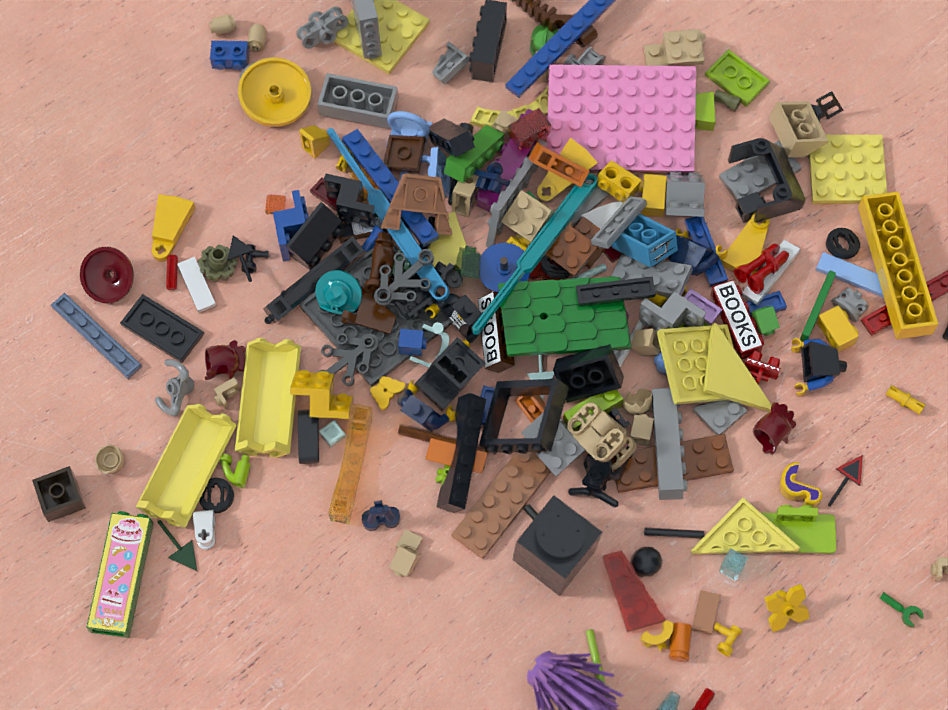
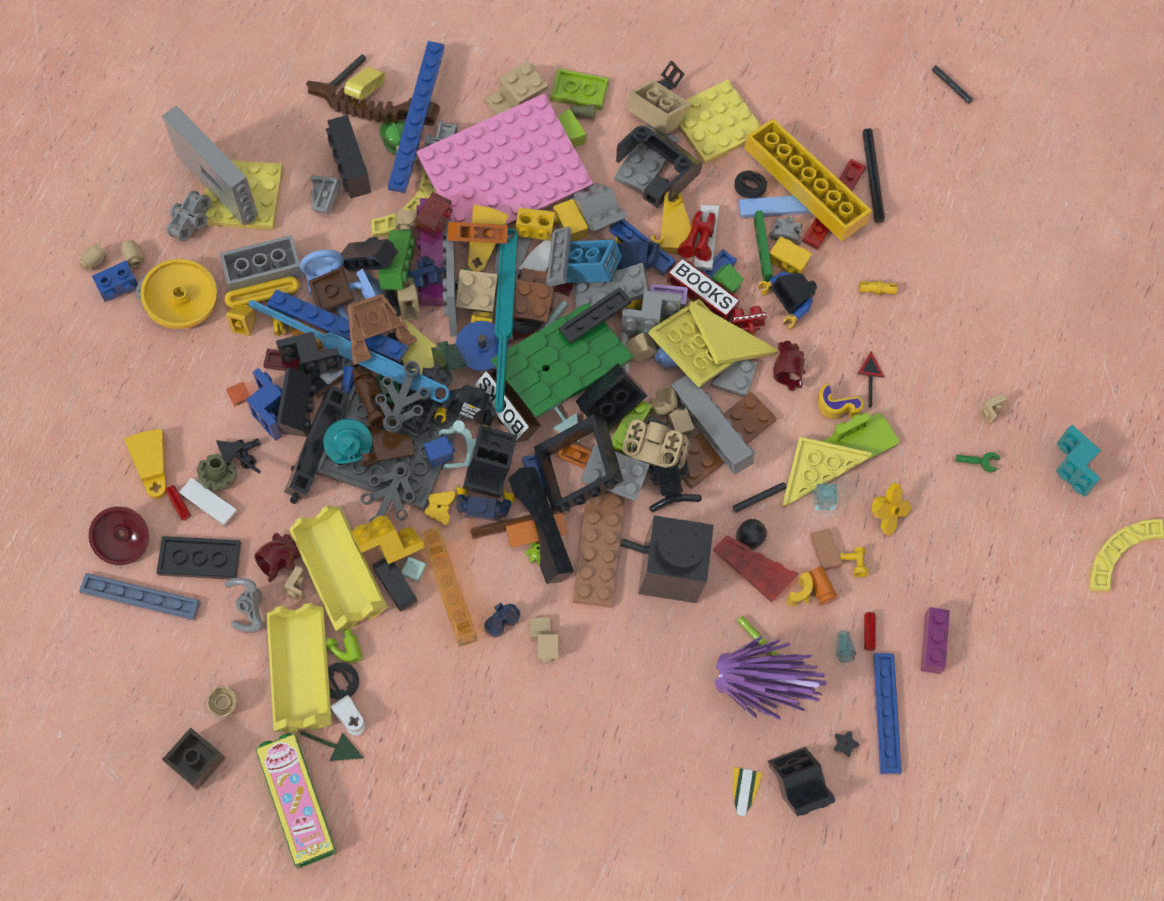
camera: 35 degrees left, 0 degrees up
(346, 124) = (261, 291): none -> yellow piece

